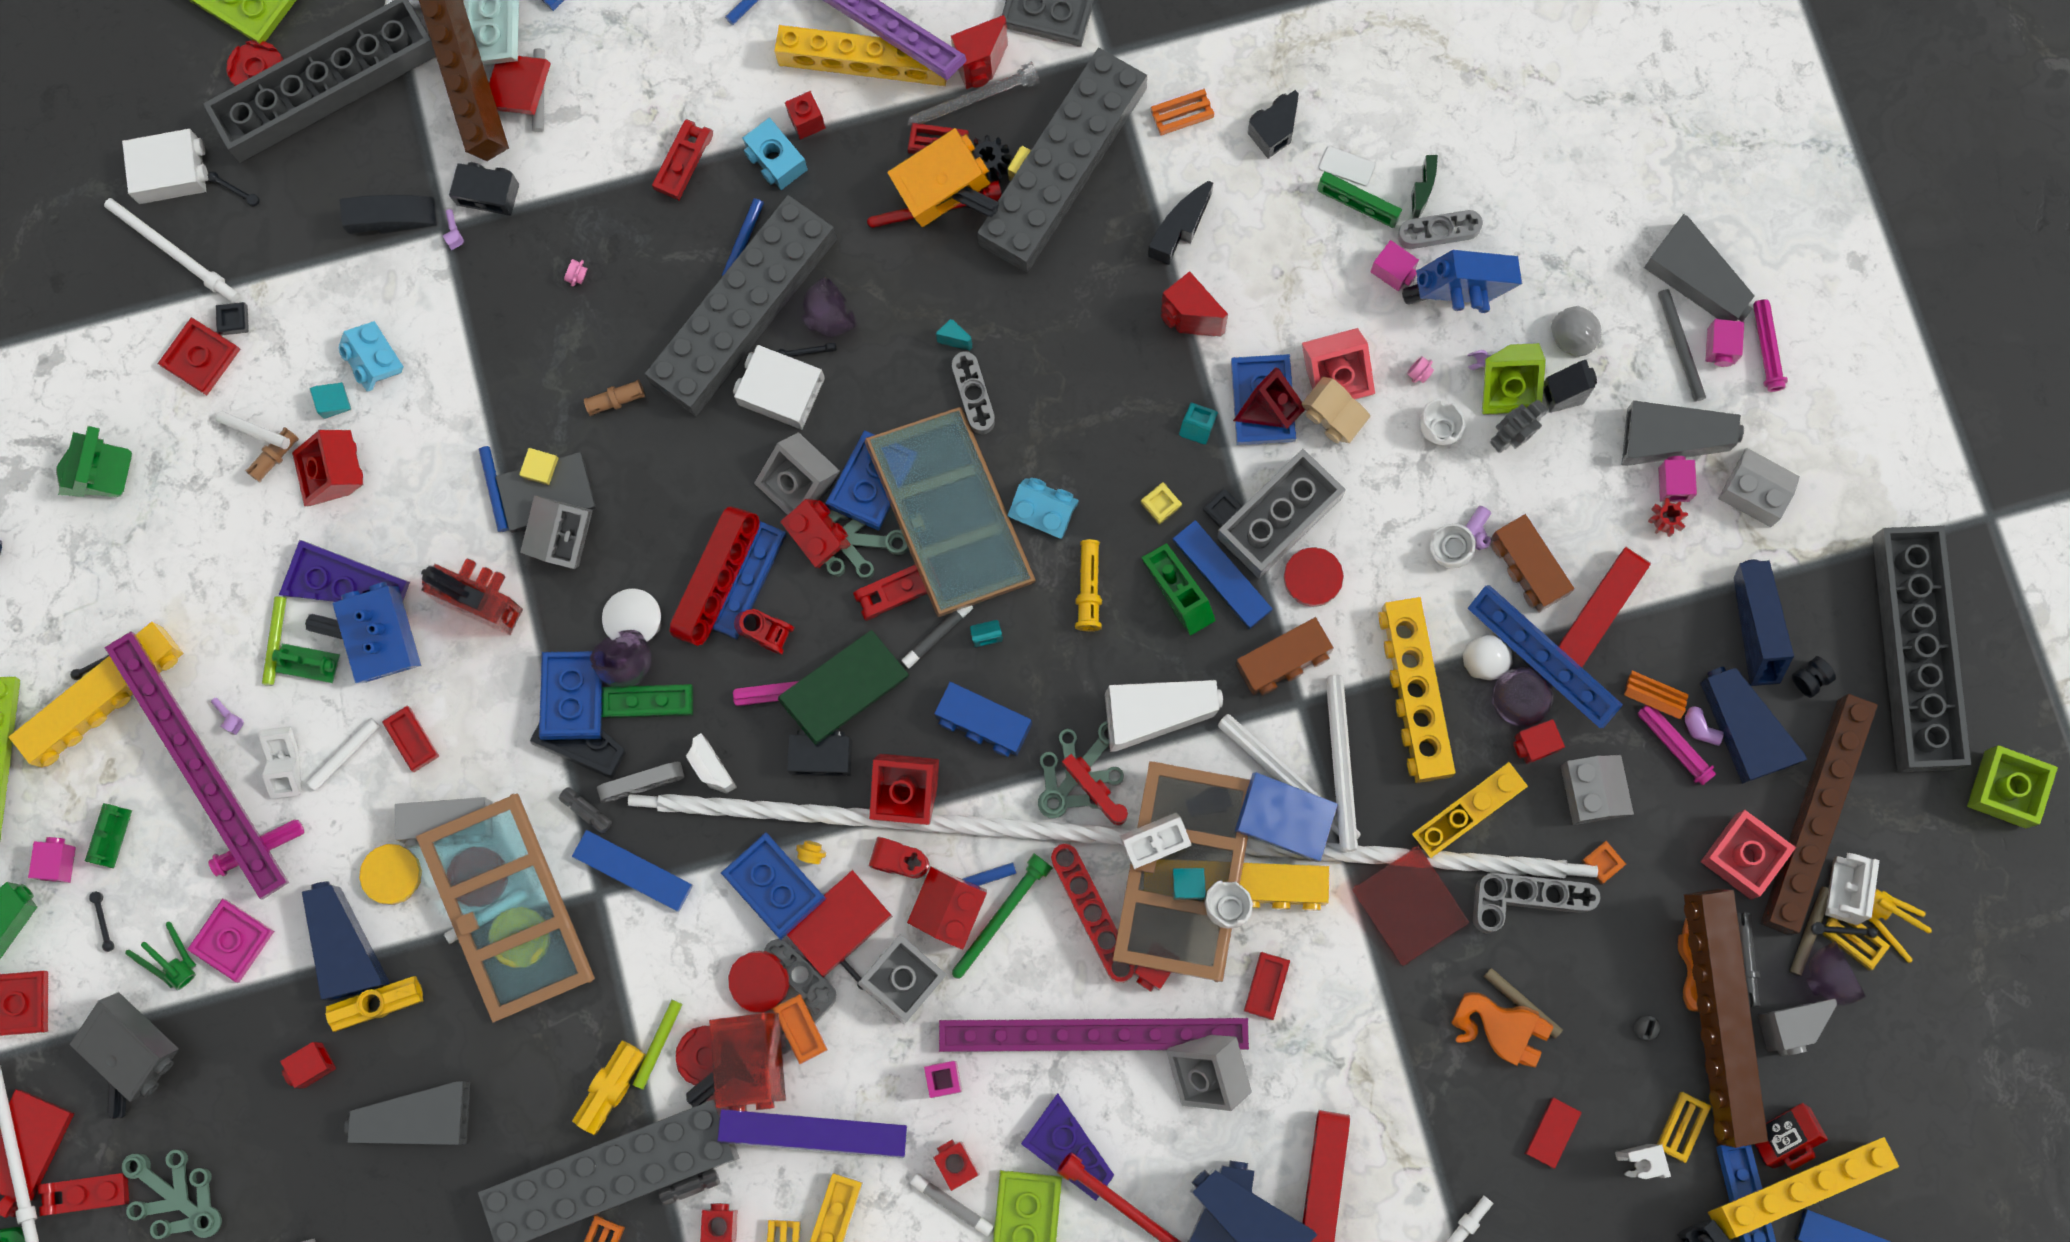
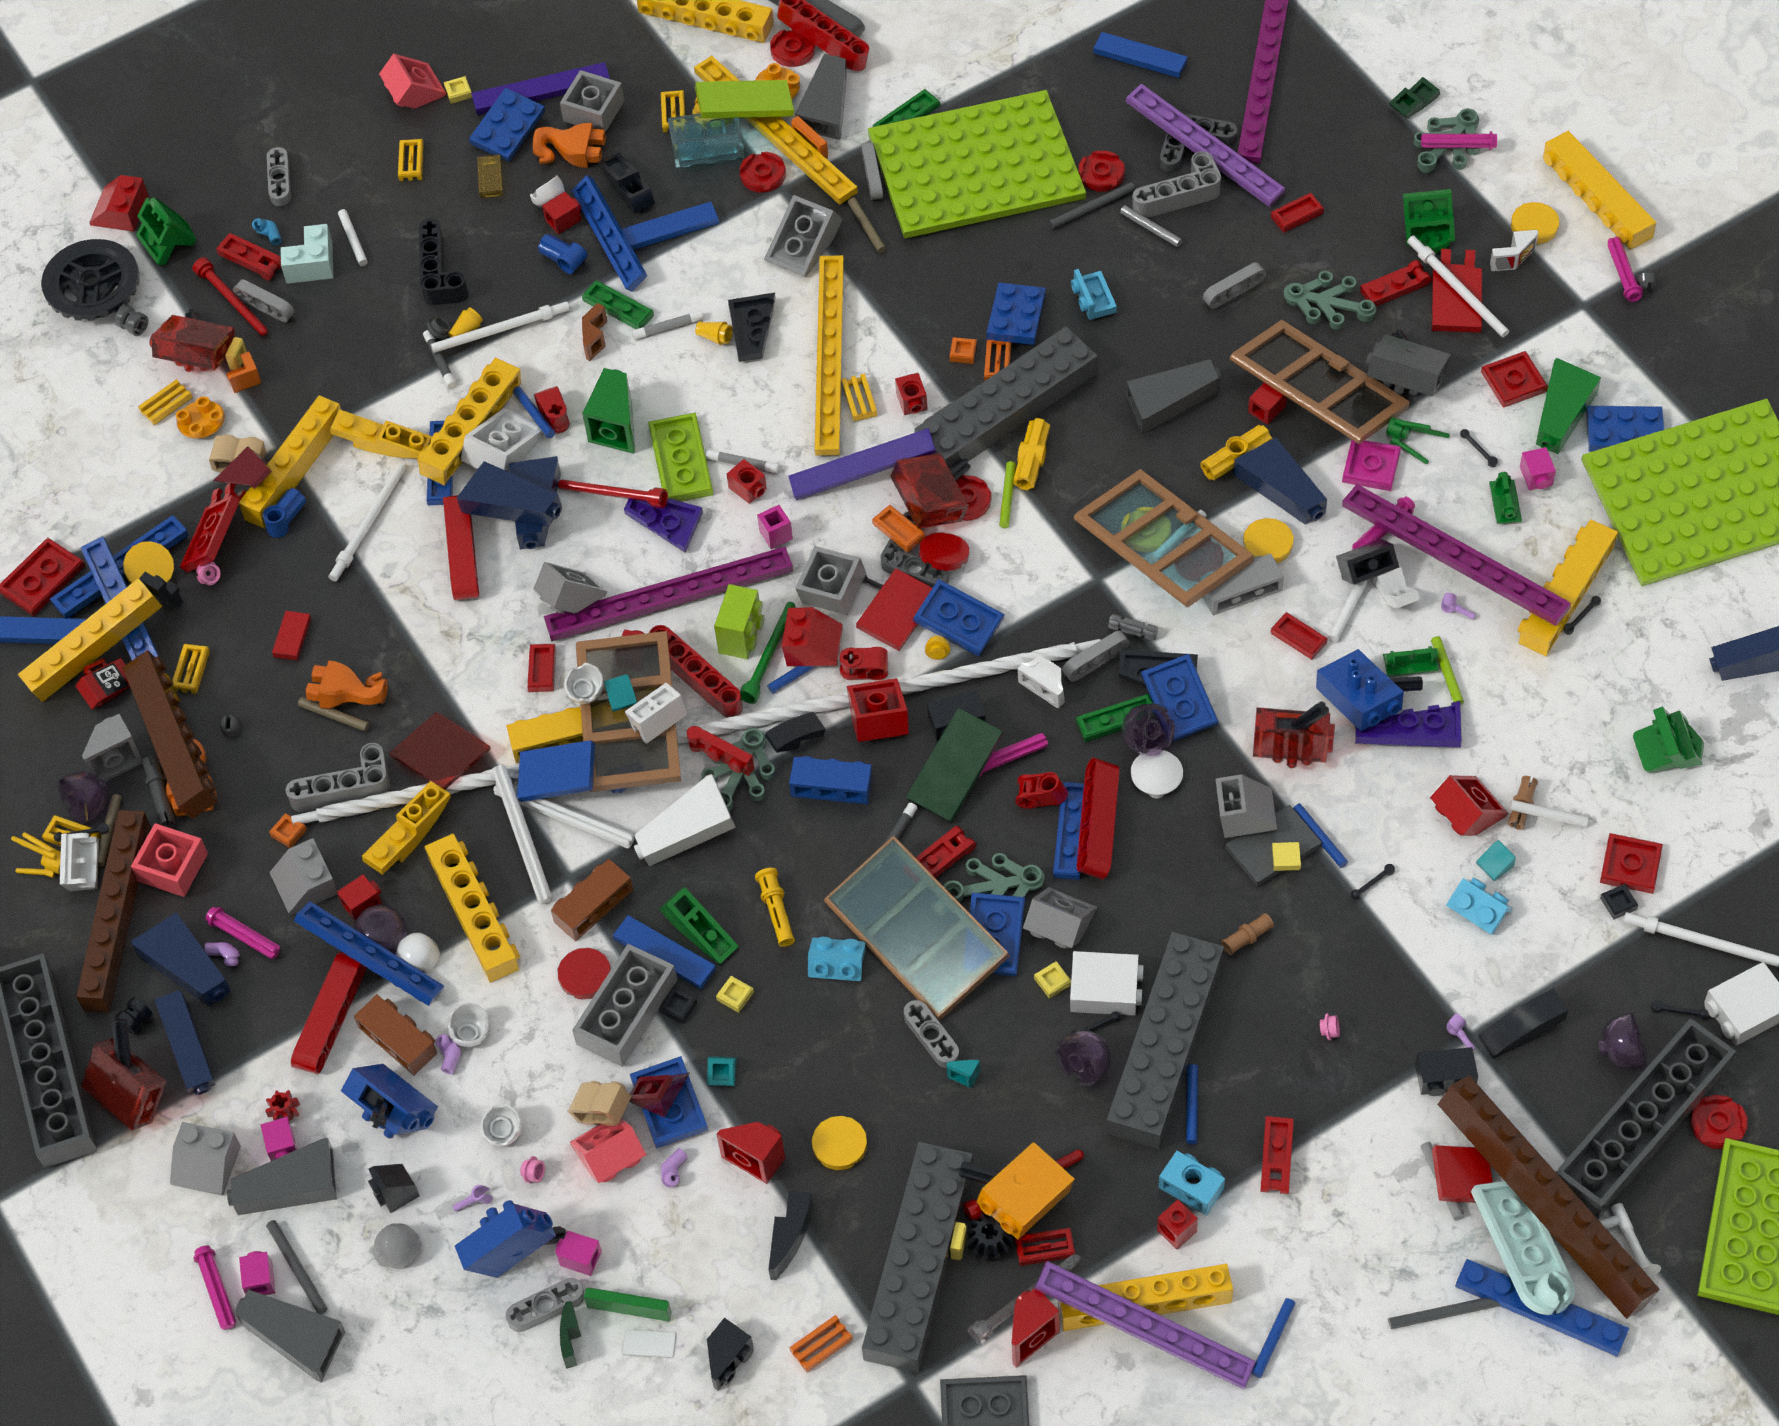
camera: 160 degrees right, 20 degrees down
(236, 1069) = (1320, 381): none -> door
(294, 796) = (1367, 561): none -> black brick
(304, 159) = (1623, 1043): none -> clear purple cylinder
(442, 429) = (1388, 870): none -> black hinge
(632, 870) = (1076, 598): blue tile -> none
(815, 531) = (1023, 872): red bracket -> none
(829, 415) = (1052, 979): none -> light yellow tile
(986, 633) = (851, 846): teal slope -> none
(1004, 794) = (791, 732): none -> black slope
(1024, 953) = (738, 622): none -> lime brick
(1103, 306) = (839, 1142): none -> yellow tile
(1280, 331) = (669, 1168): none -> lavender arm
(1513, 378) = (444, 1185): lime slope -> none
(1518, 426) = (431, 1134): dark grey gear -> none
(1555, 473) = (389, 1100): none -> blue piece
(1648, 1160) = (218, 626): white hinge -> none
(1656, 694) = (244, 962): orange tile -> none
(1836, 588) = (123, 1080): none -> clear red piece

